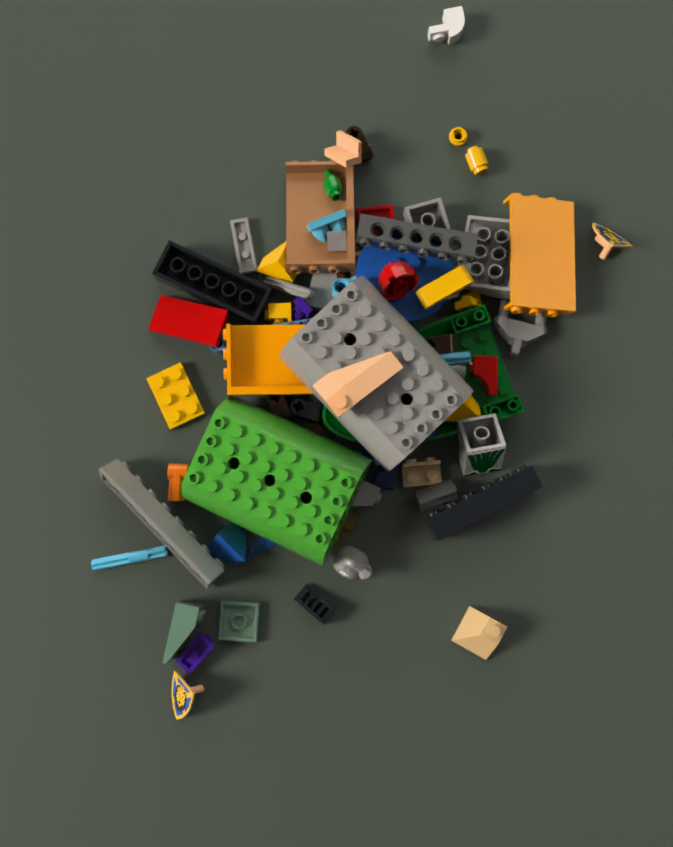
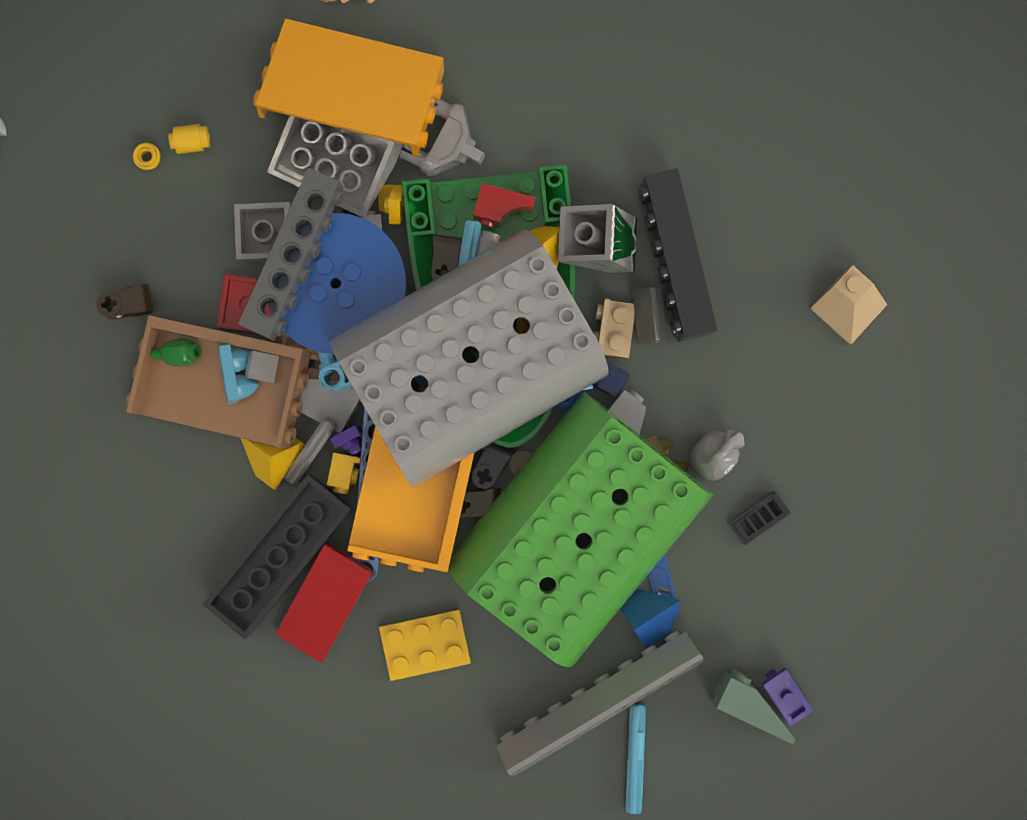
camera: 80 degrees left, 5 degrees up
(175, 475) = (539, 667): orange piece -> none
(183, 695) = (840, 725): shield -> none
(239, 621) = (757, 627): sand green tile -> none
(244, 246) = (232, 499): light grey tile -> none
(347, 150) = (132, 322): light nougat panel -> none
(351, 384) = (484, 394): light nougat wedge -> none
(396, 280) = (344, 297): red cylinder -> none
(444, 287) = (370, 232): yellow beam -> none

